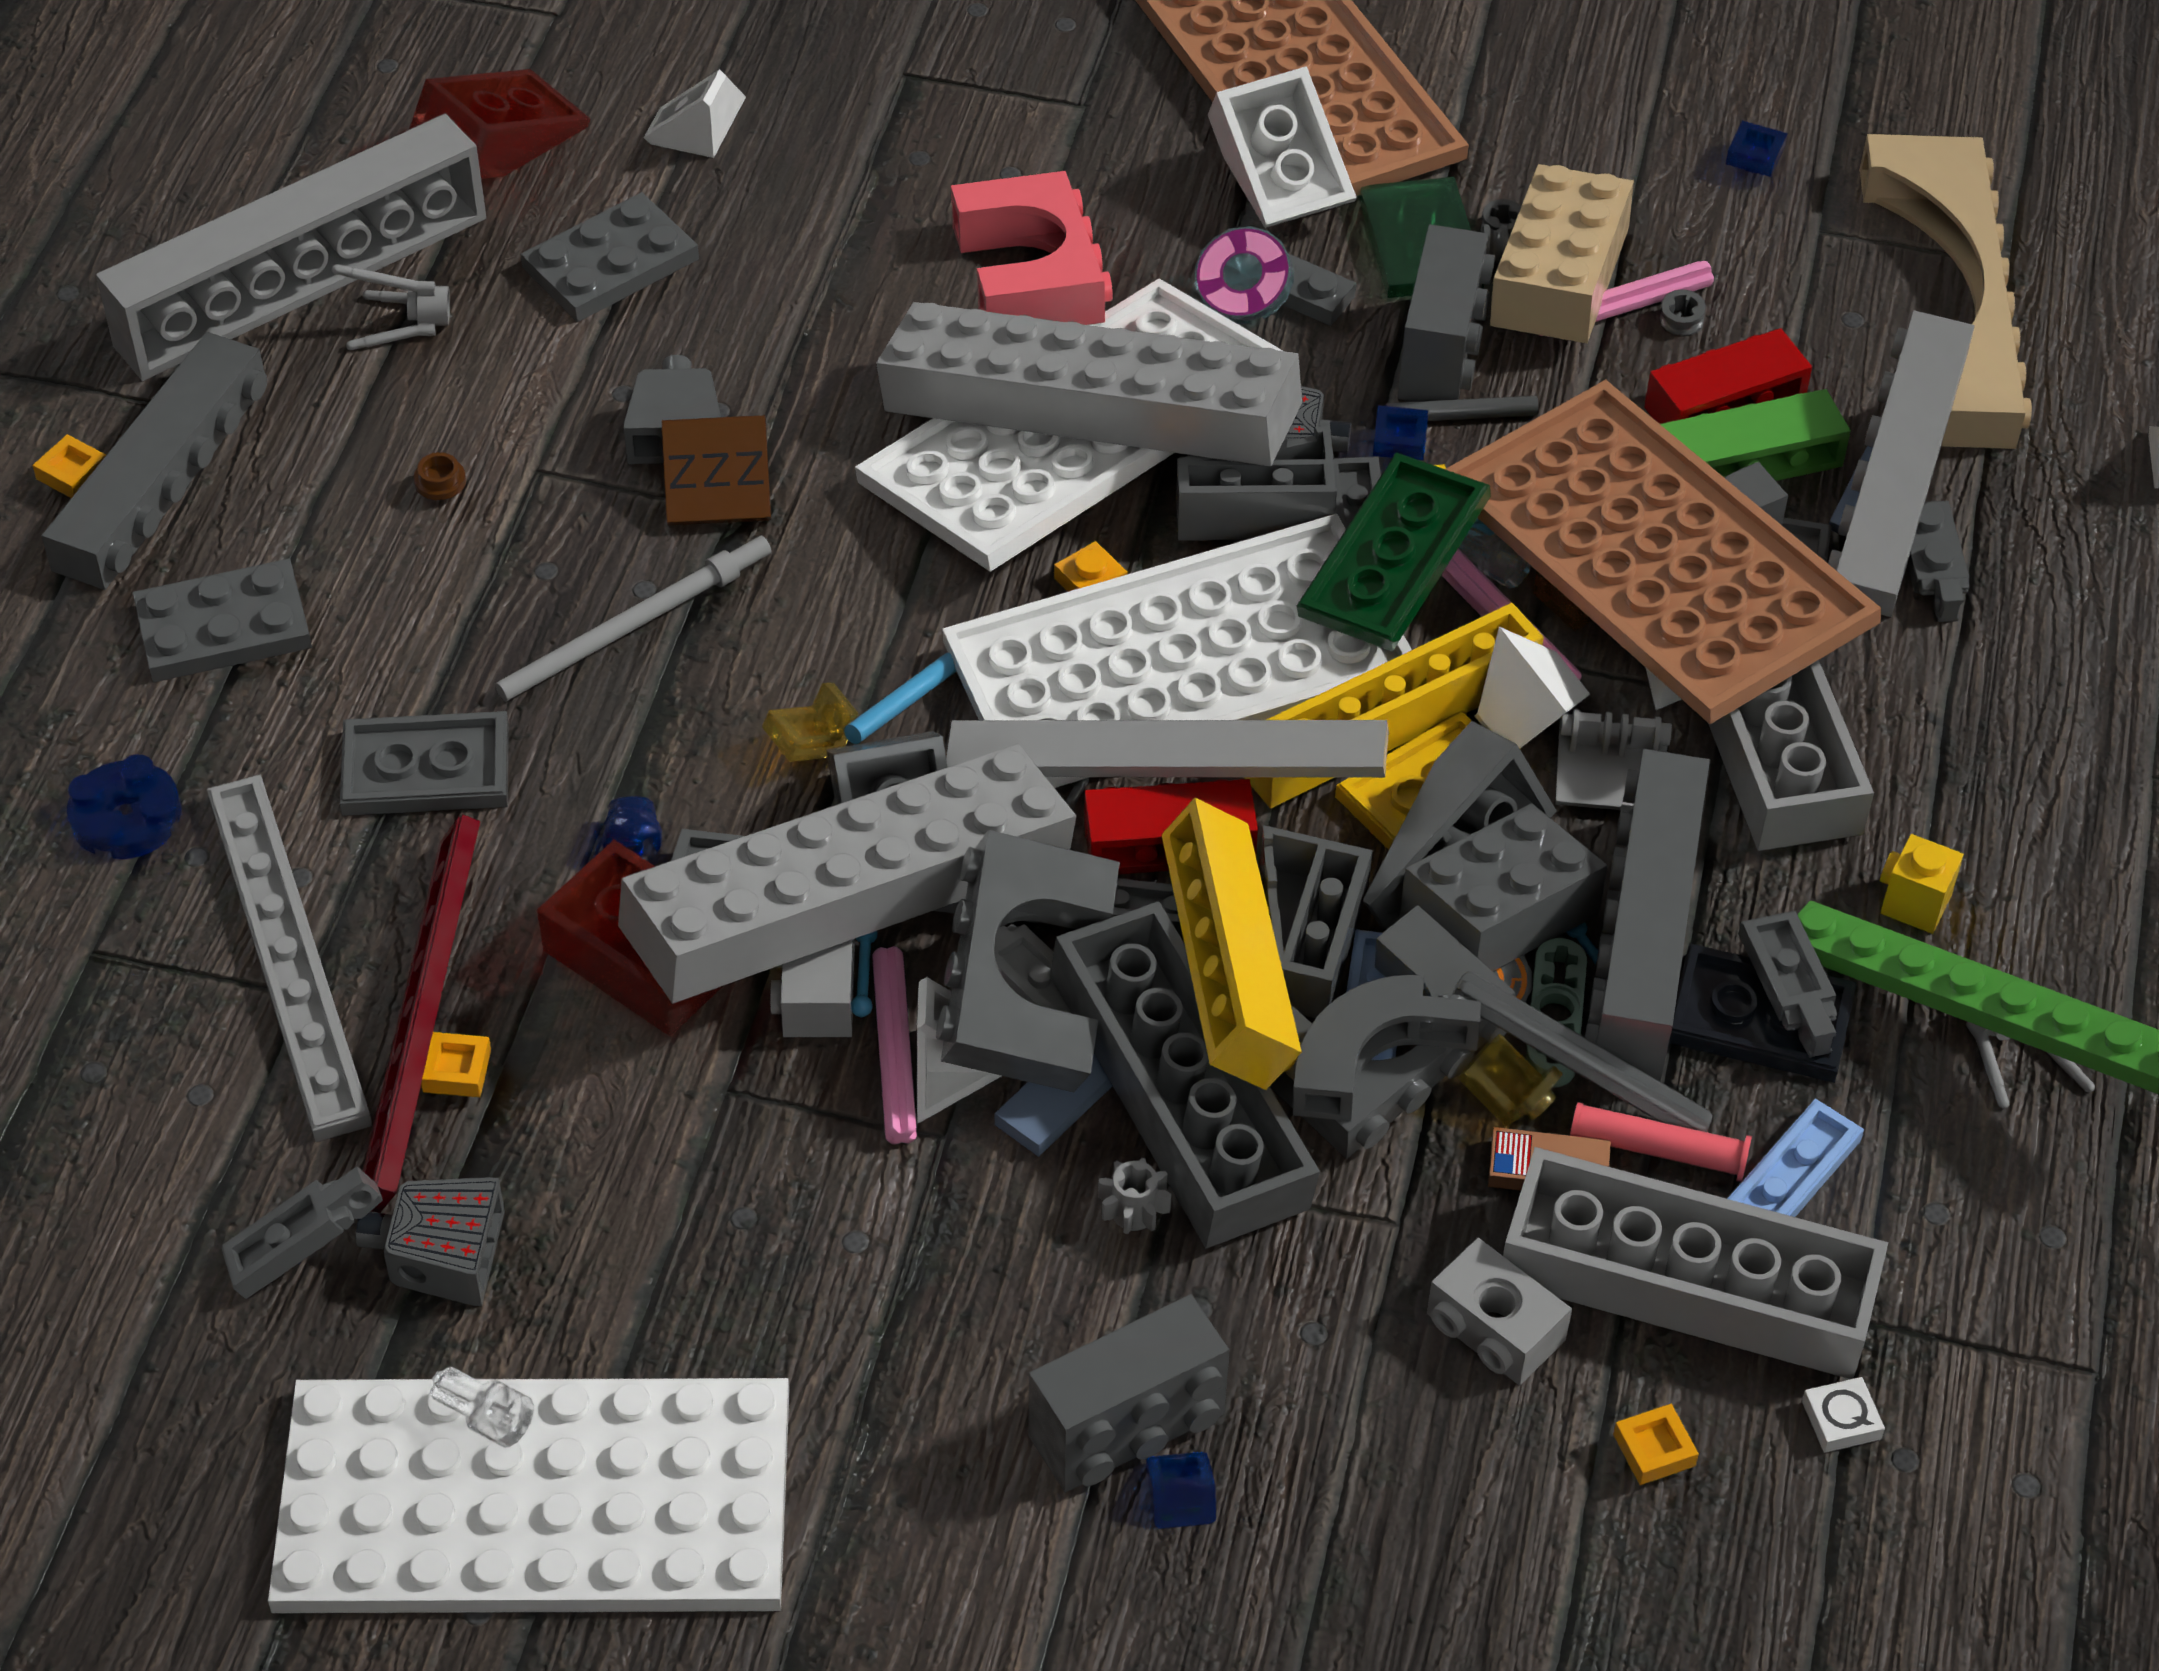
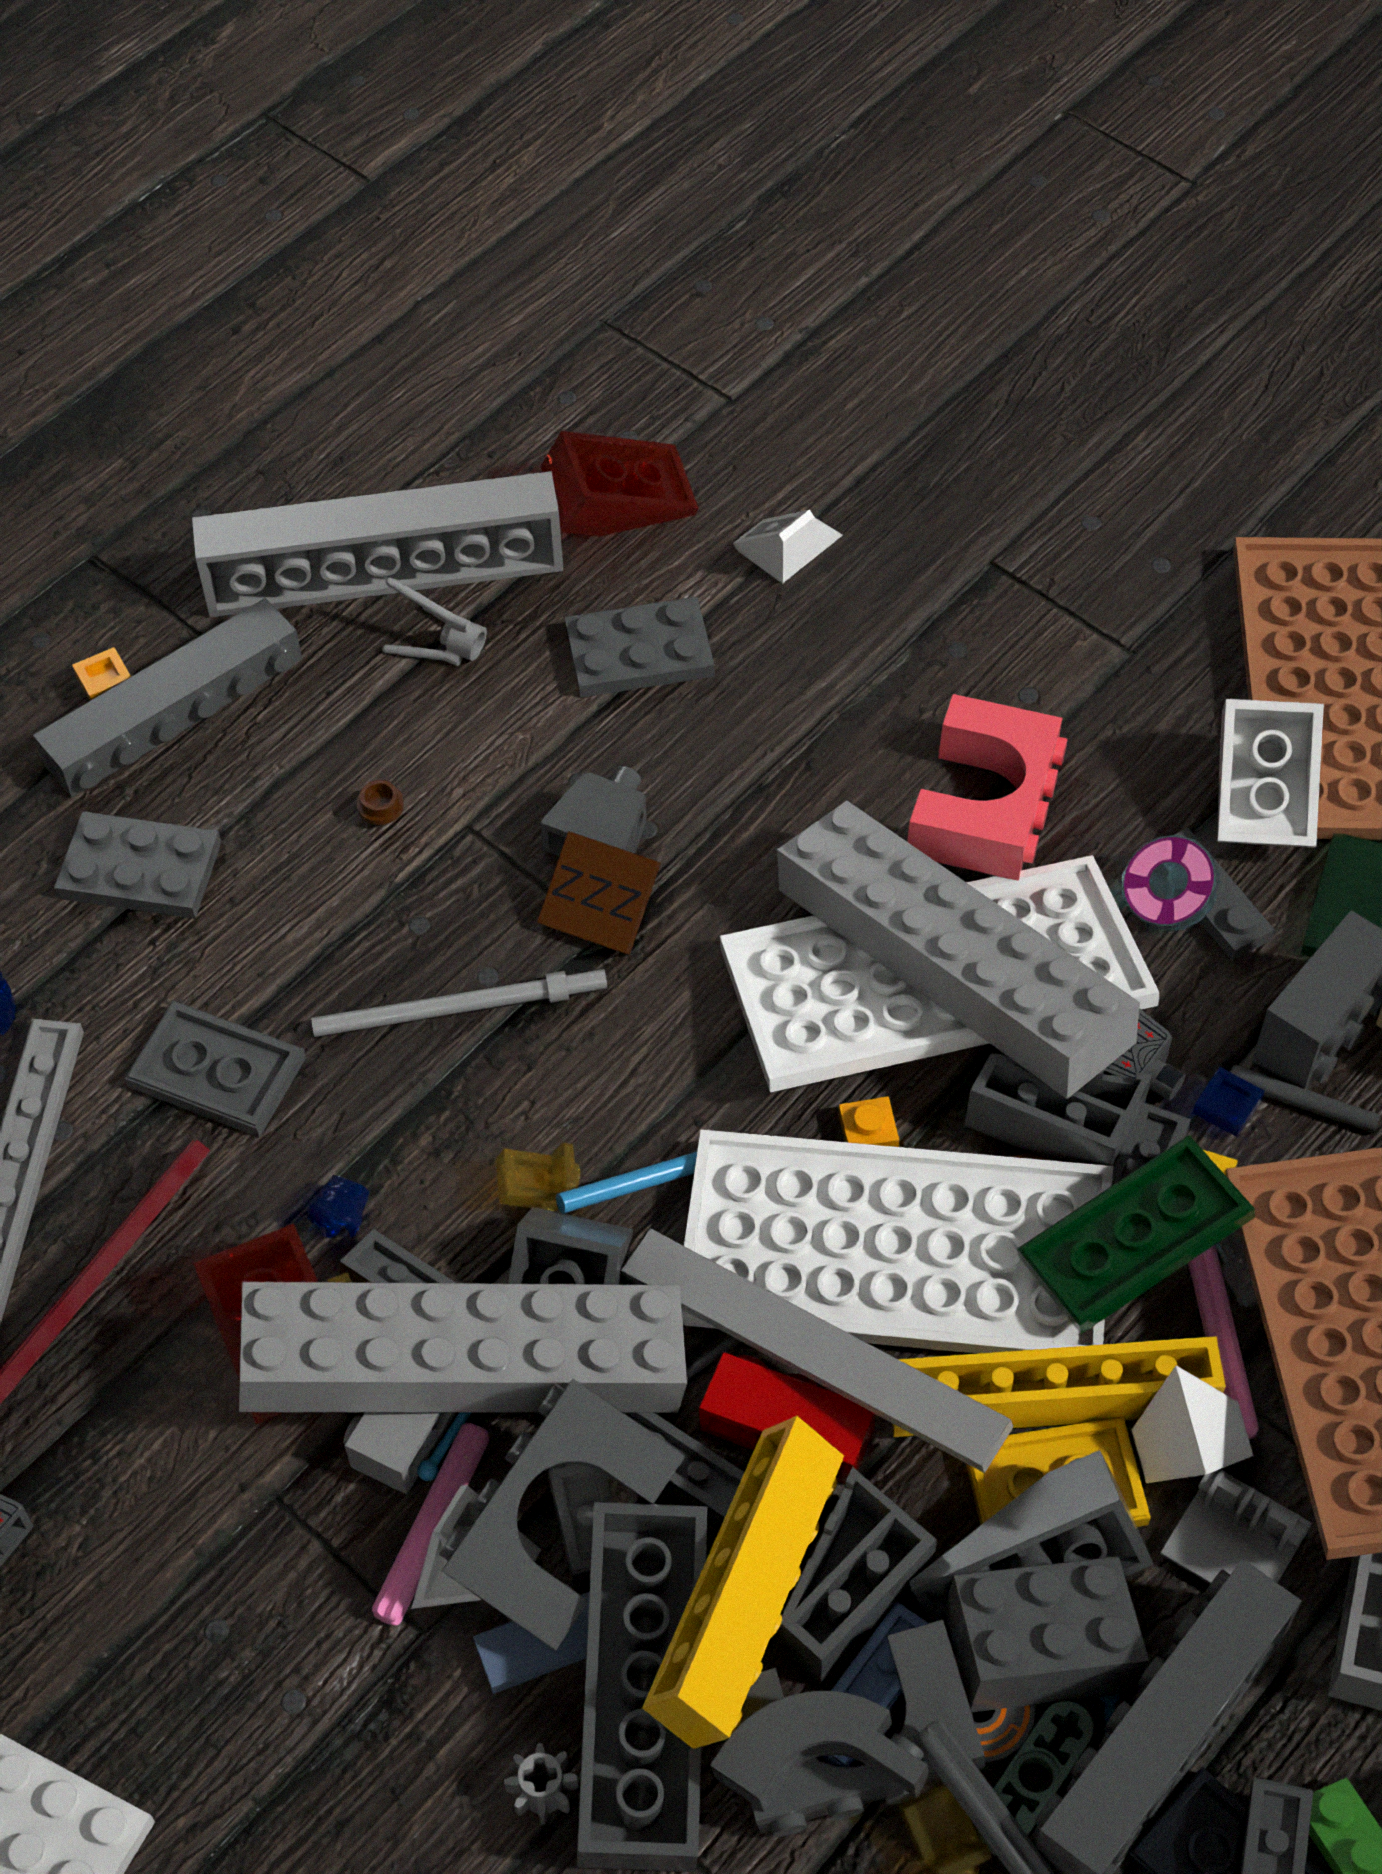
camera: 30 degrees right, 5 degrees up
(456, 1064) = (68, 1371): light orange plate -> none

